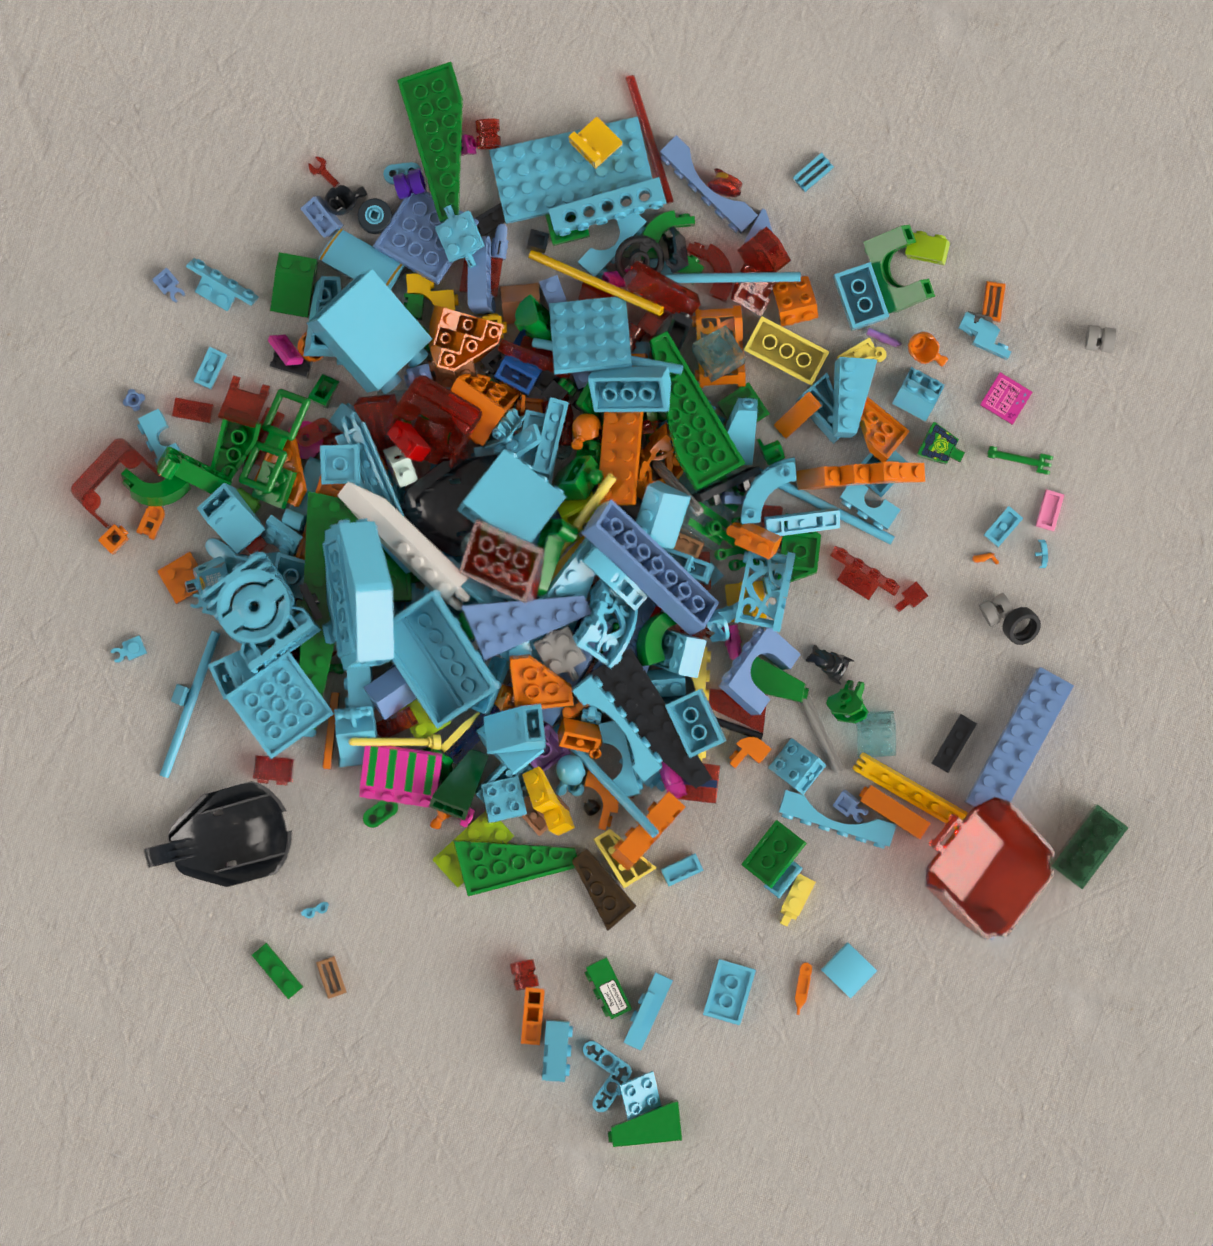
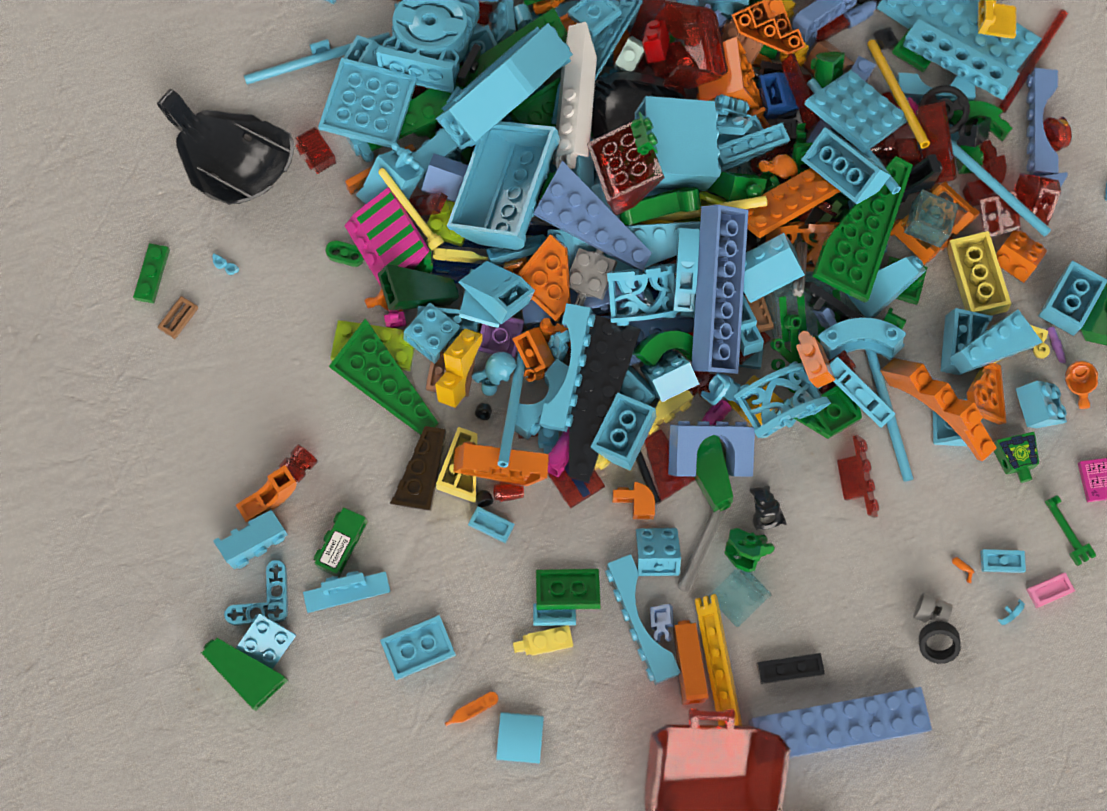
camera: 50 degrees right, 15 degrees down
(489, 529) = (646, 138): none -> green hinge
(610, 803) = (497, 420): orange arch -> none
(658, 859) = (484, 498): none -> black hinge
(667, 839) = (507, 492): none -> clear red cone
(797, 415) = (939, 320): orange tile -> none
(882, 516) = (920, 453): medium azure arch -> none
(912, 595) = (879, 533): clear red plate -> none

